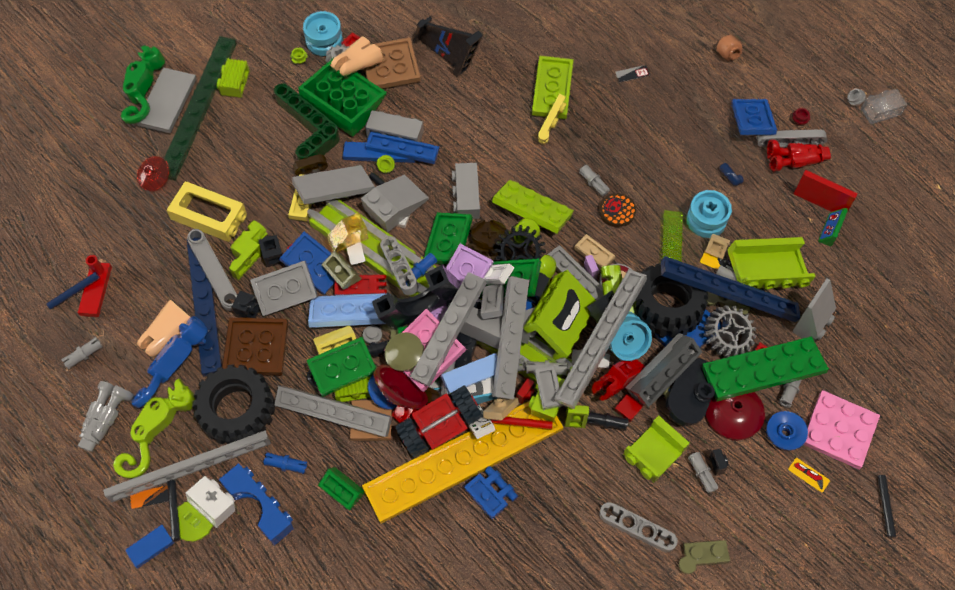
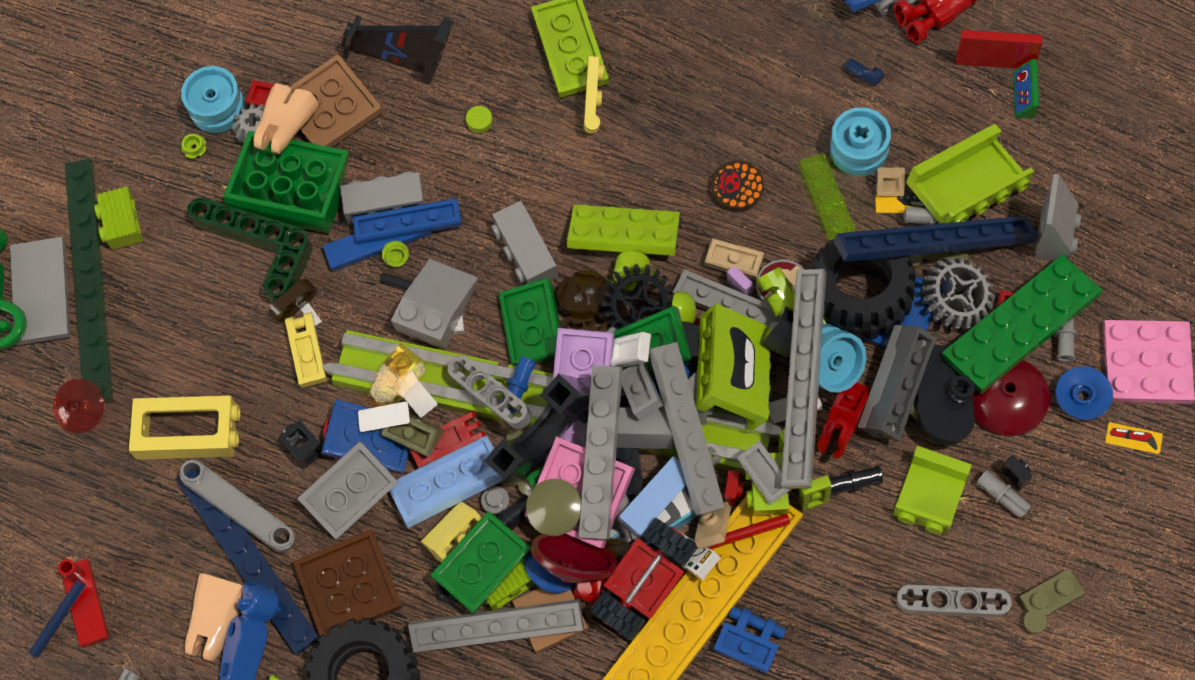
camera: 15 degrees left, 5 degrees up
(245, 306) = (307, 536): black brick -> none
(247, 249) = (266, 455): lime plate -> none
(327, 253) = (383, 416): none -> white sticker
(332, 184) = (340, 315): light grey tile -> none
(476, 108) = (479, 119): none -> lime tile
(561, 368) = (734, 449): light grey pin -> none
(594, 180) = (687, 157): light grey axle -> none
(628, 408) = (872, 451): red tile -> none

